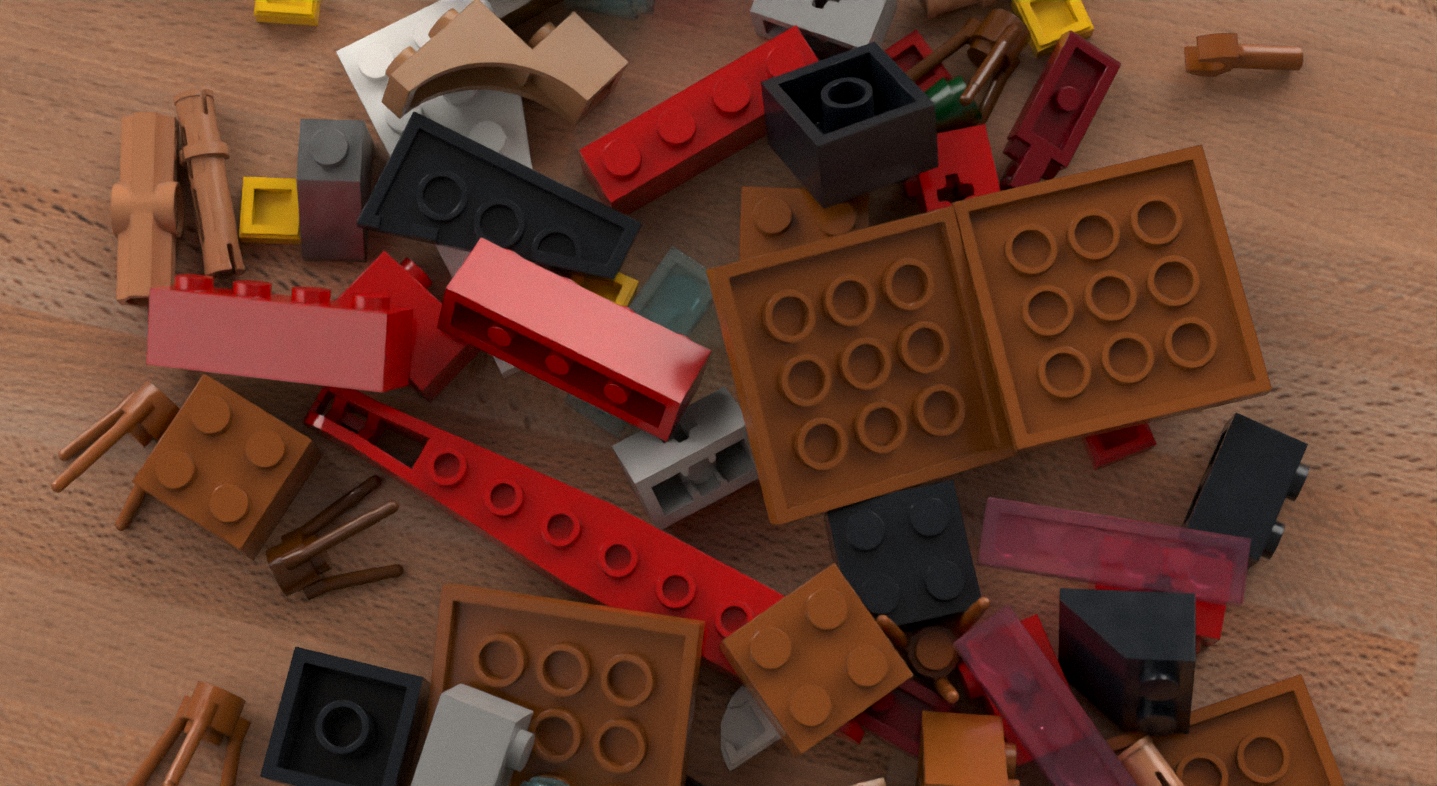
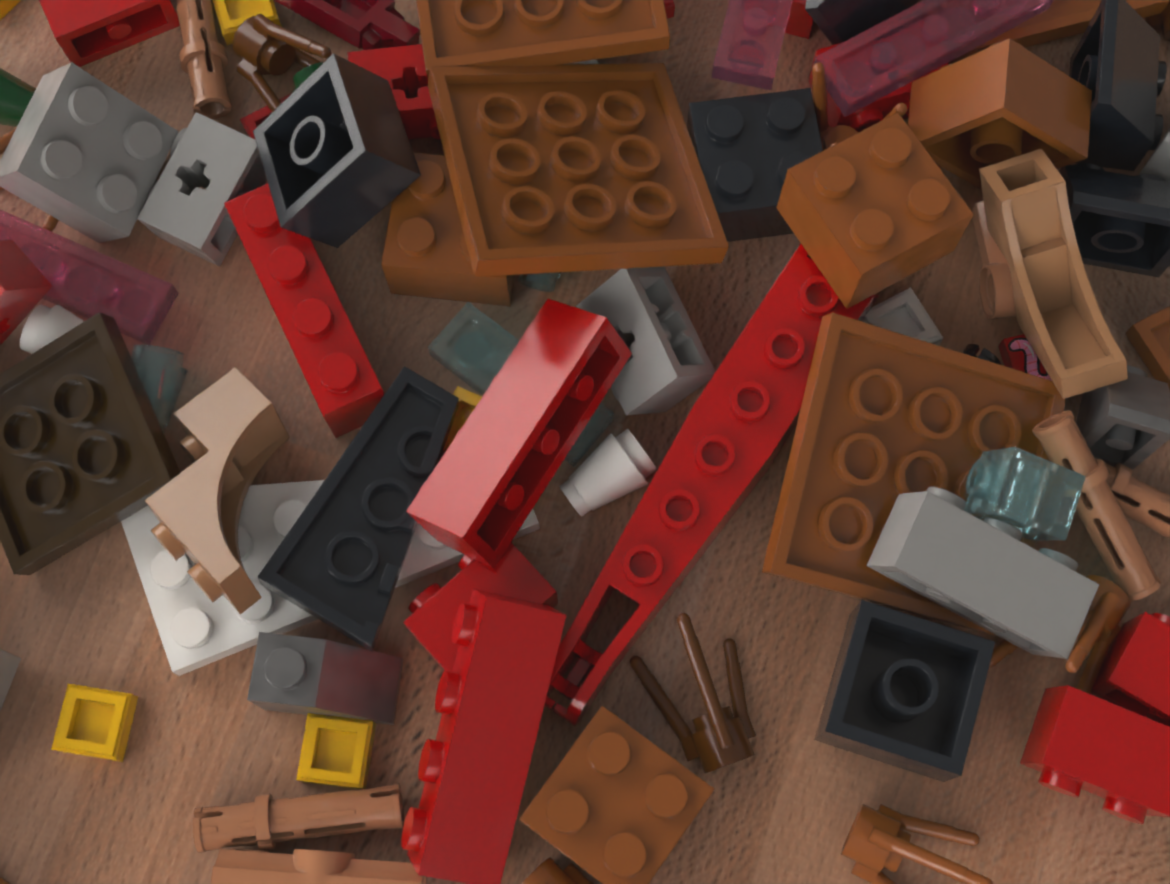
camera: 85 degrees left, 5 degrees down
(558, 439) = (608, 473): none -> white cone

